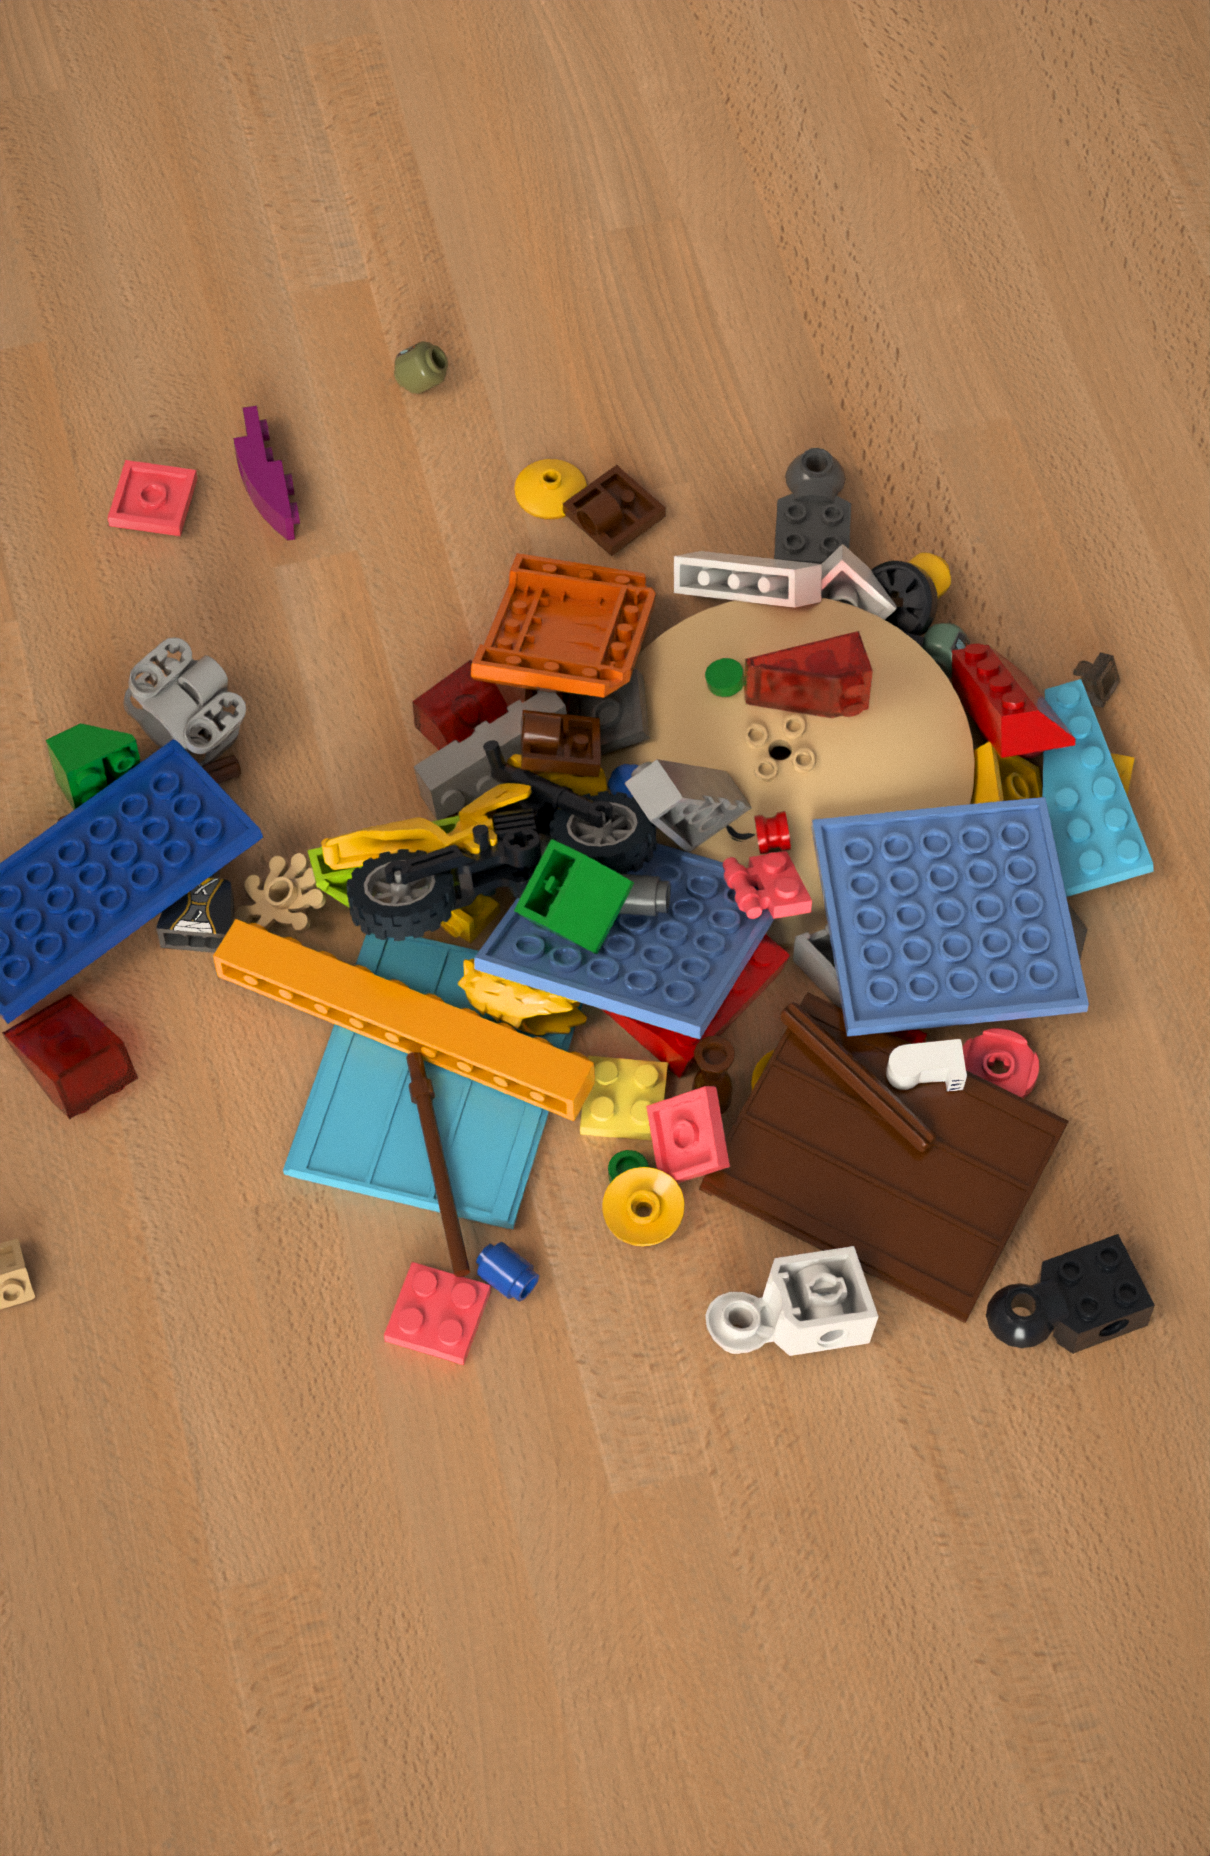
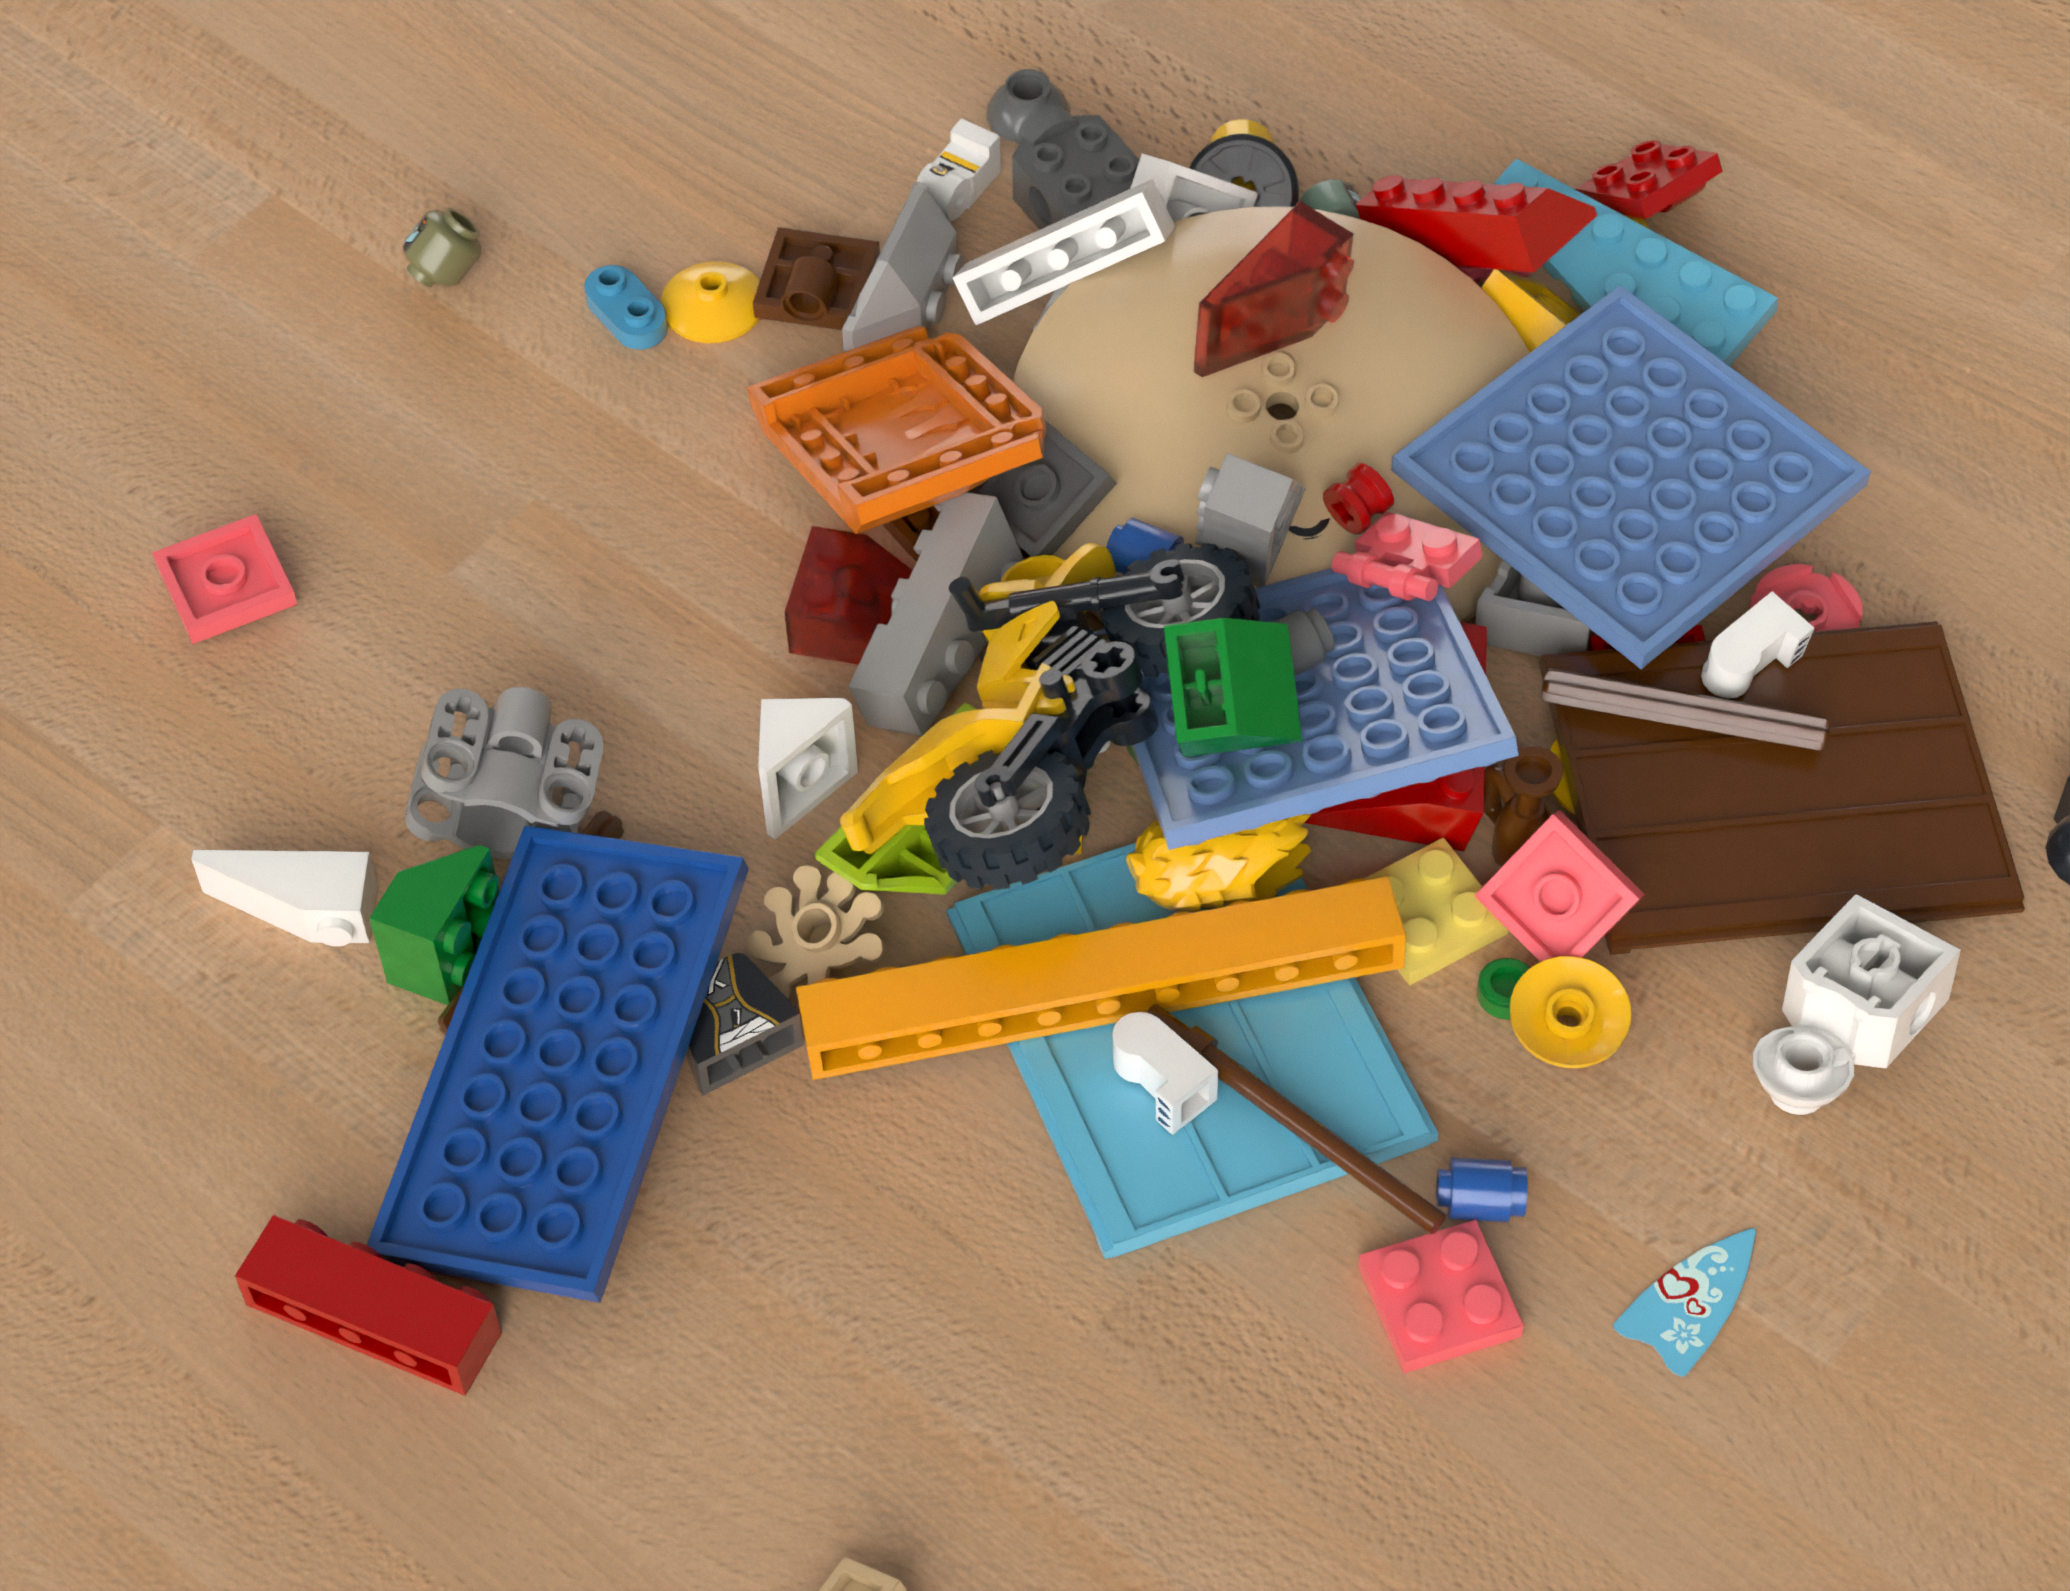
camera: 35 degrees left, 5 degrees down
(46, 700) = (304, 892): none -> white slope
(71, 1055) = (713, 1288): clear red slope -> none
(264, 477) = (354, 480): magenta slope -> none
(350, 791) = (803, 756): none -> white slope
(391, 1080) = (1166, 1067): none -> white leg
(497, 460) = (617, 299): none -> dark azure plate
(560, 743) = (1035, 538): reddish brown plate -> none
(570, 1409) = (1690, 1302): none -> medium azure sticker
(658, 535) = (909, 275): none -> light grey wedge
(724, 677) = (1152, 361): green tile -> none
(750, 491) = (963, 168): none -> white leg
(1099, 678) = (1525, 147): clear smoke tile -> none
(1154, 741) = (1652, 179): none -> red plate

